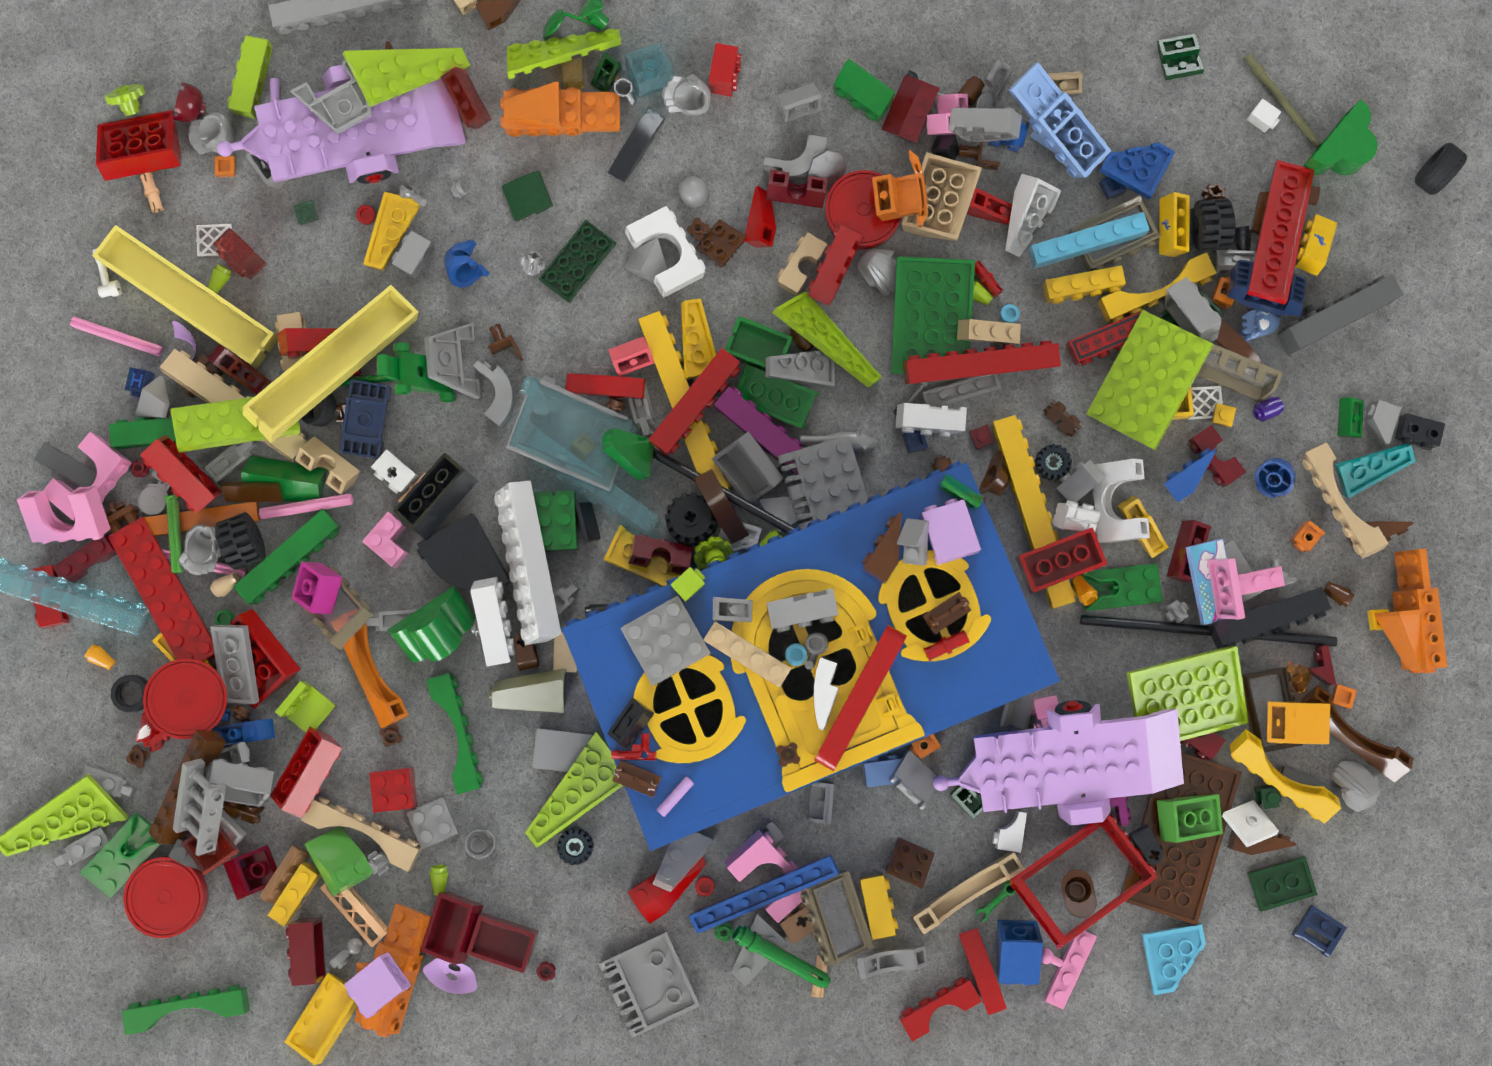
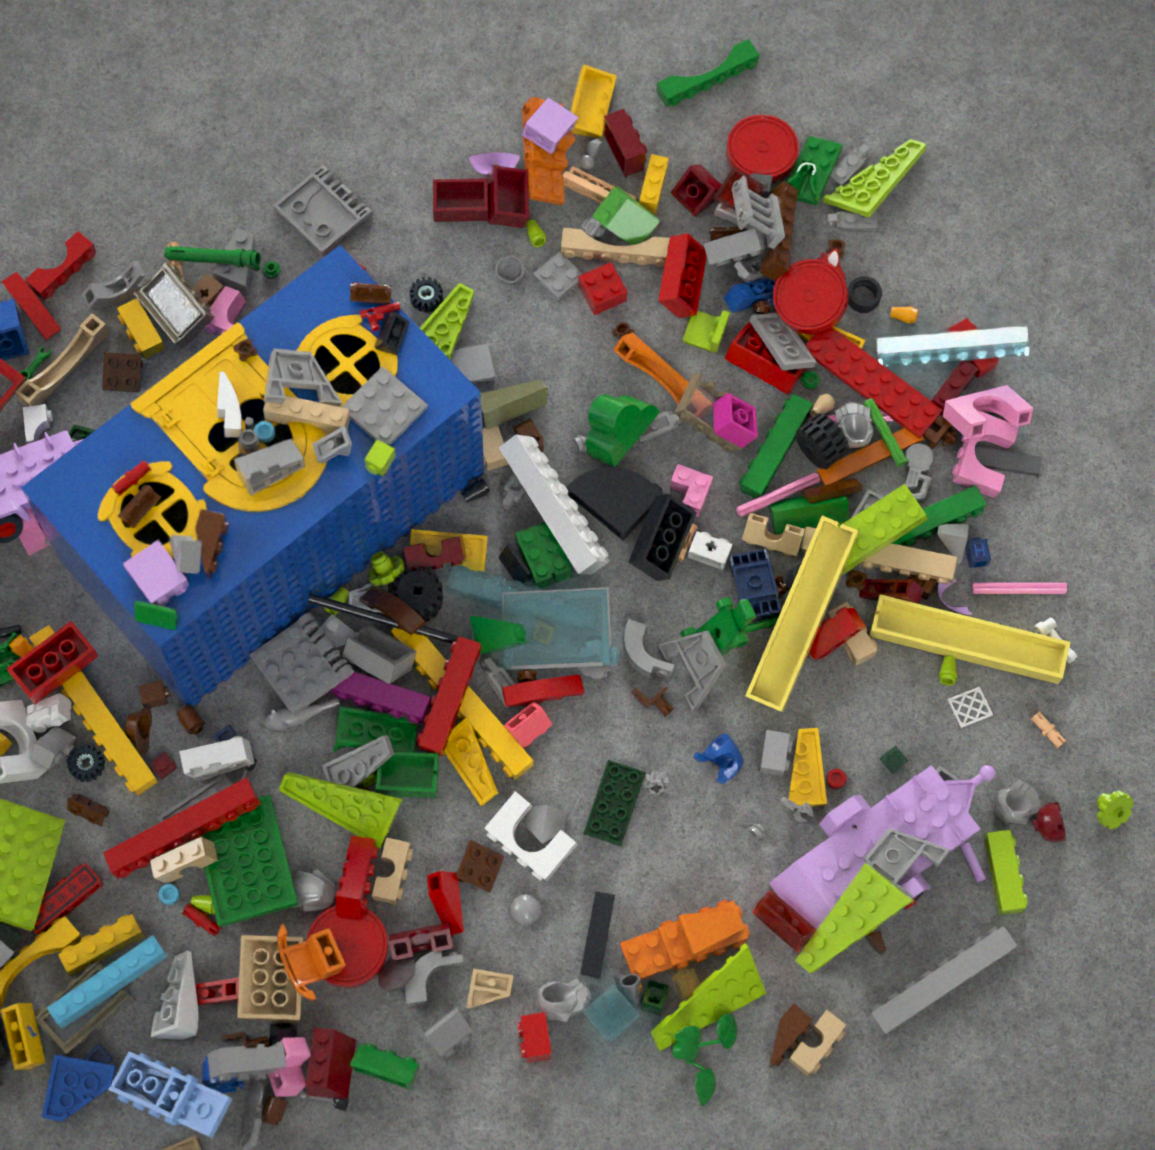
camera: 155 degrees right, 15 degrees down
(136, 472) = (943, 485): dark red plate -> none
(137, 145) = (1082, 769): red slope -> none
(180, 473) = (887, 473): red brick -> none
(225, 166) = (996, 781): orange plate -> none
(238, 254) = (936, 694): clear red brick -> none
(283, 874) = (669, 195): medium nougat plate -> none
(465, 773) = (588, 378): green arch -> none
(492, 621) = (567, 445): white brick -> none
(527, 195) = (687, 848): dark green slope -> none
(541, 971) = (415, 188): dark red plate -> none
(675, 796) = (332, 289): lavender piece -> none
(703, 229) = (504, 867): reddish brown plate -> none
(745, 706) = (297, 370): none -> light grey wing
(749, 133) = (488, 987): none -> tan wing
(764, 894) = (242, 302): blue plate -> none
(860, 698) = (195, 411): red beam -> none

